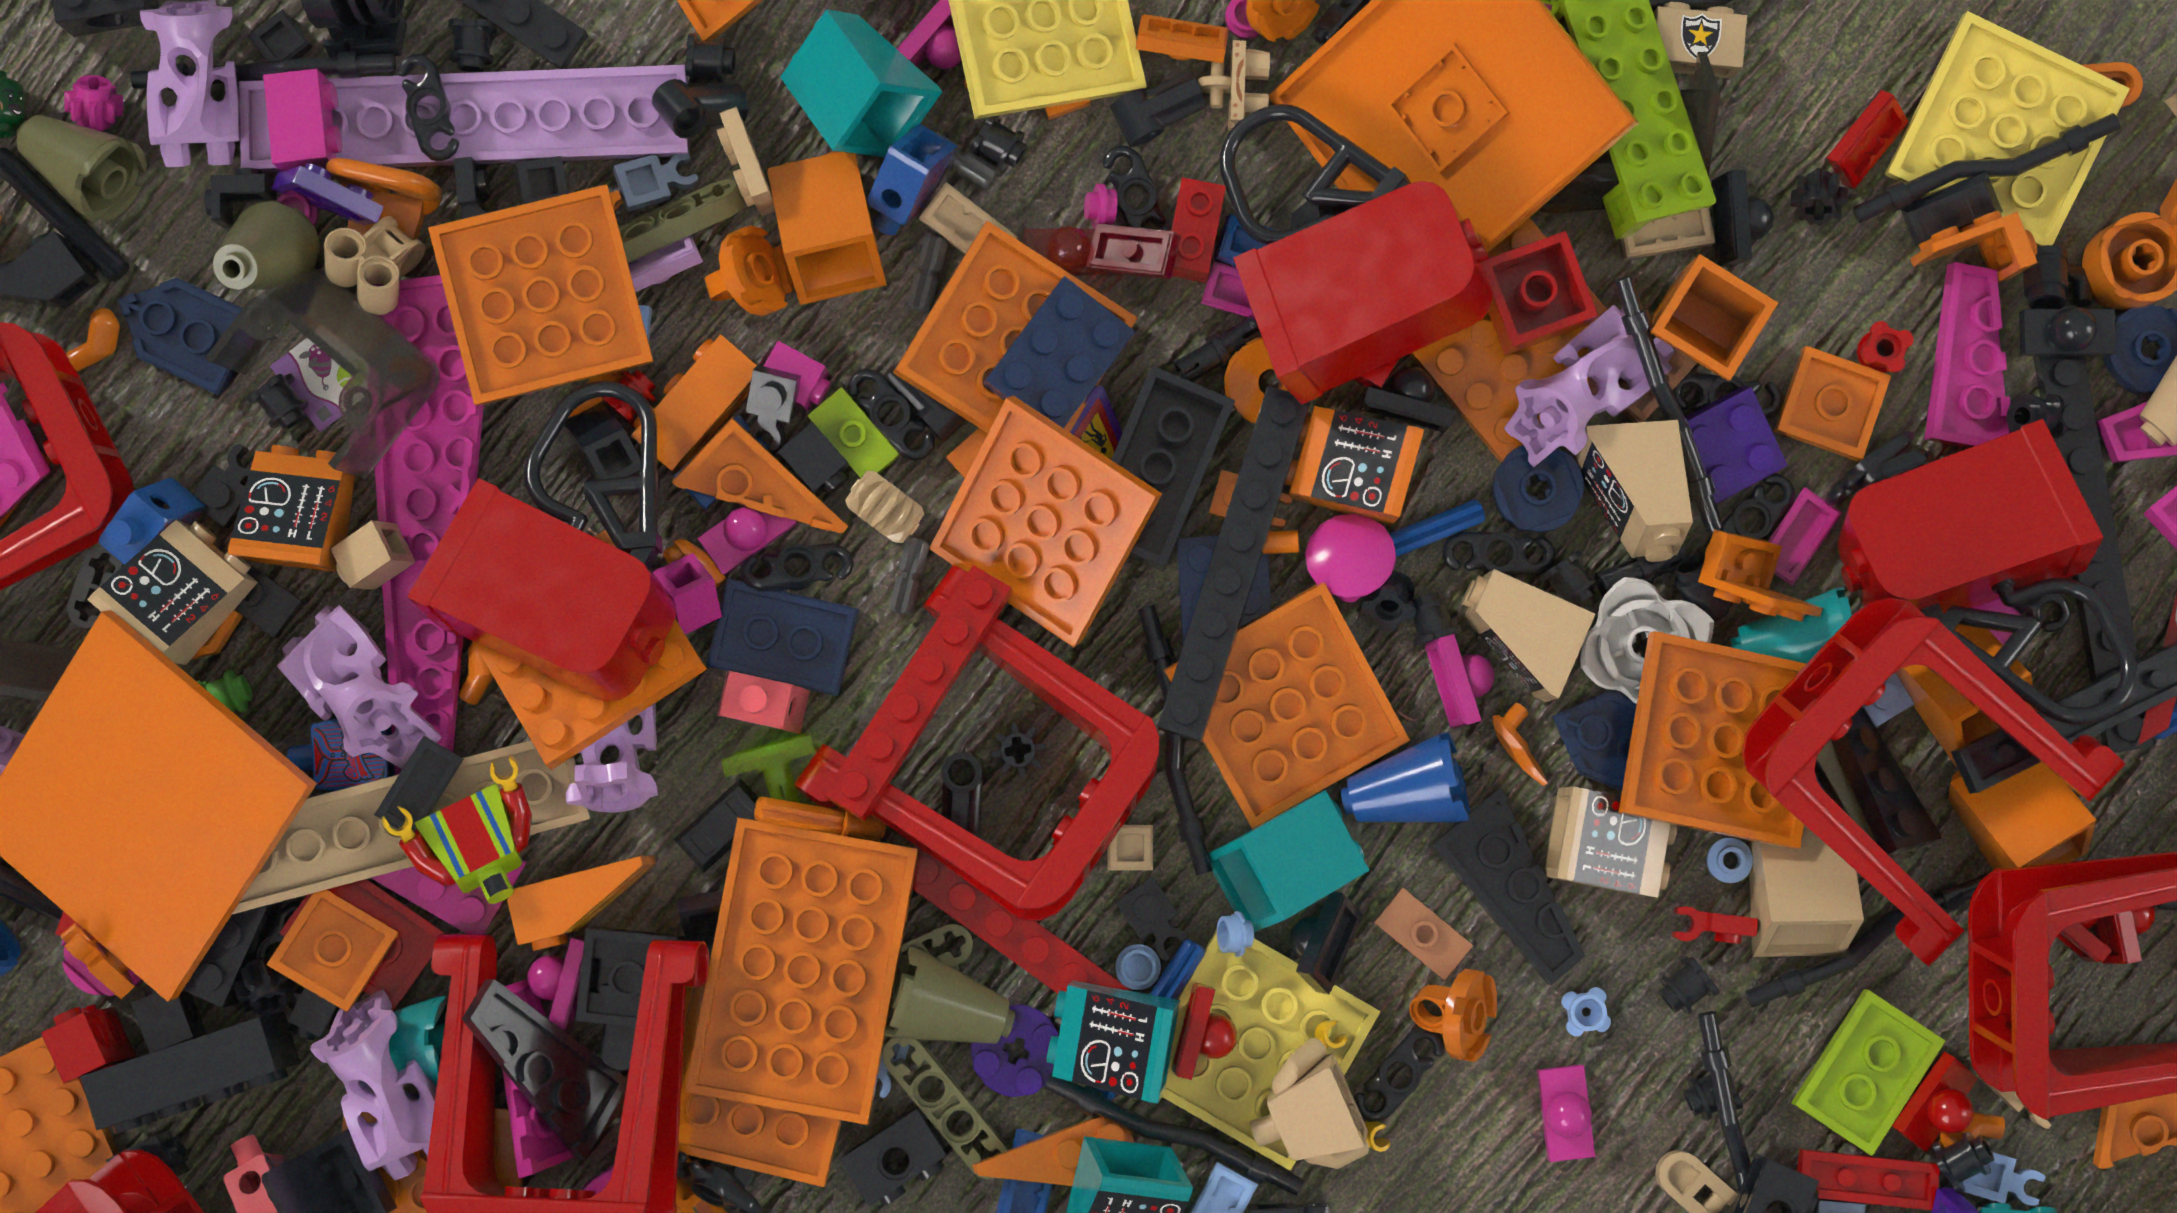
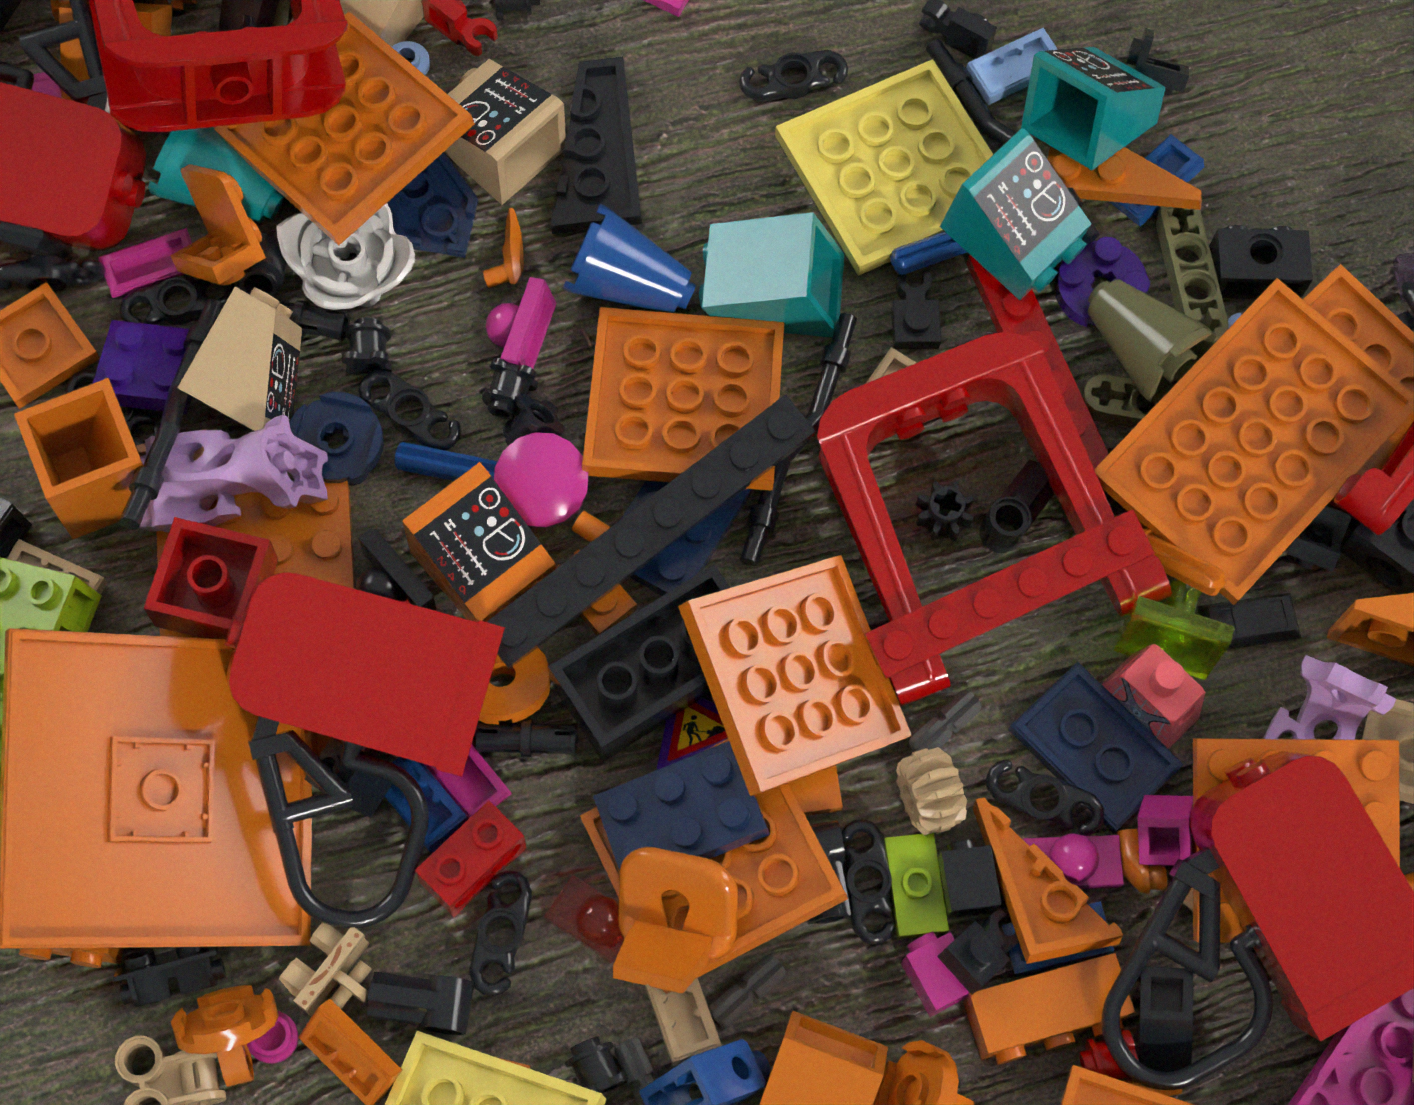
camera: 150 degrees left, 15 degrees down
(1005, 235) = (651, 949): none -> orange piece
(1101, 205) = (540, 943): dark pink plate -> none
(1133, 251) = (543, 868): dark red plate -> none
(1138, 967) = (955, 282): light blue plate -> none
(1202, 1033) = (936, 188): red tile -> none
(1234, 934) = (859, 244): light blue plate -> none
(1316, 1109) = (883, 79): tan torso -> none
(1325, 941) = (786, 193): black tile -> none
(1423, 933) = (697, 163): nougat plate -> none
(1463, 1013) = (716, 81): orange tile -> none
(1528, 630) = (431, 318): tan slope -> none
(1596, 1020) = (608, 16): light blue plate -> none

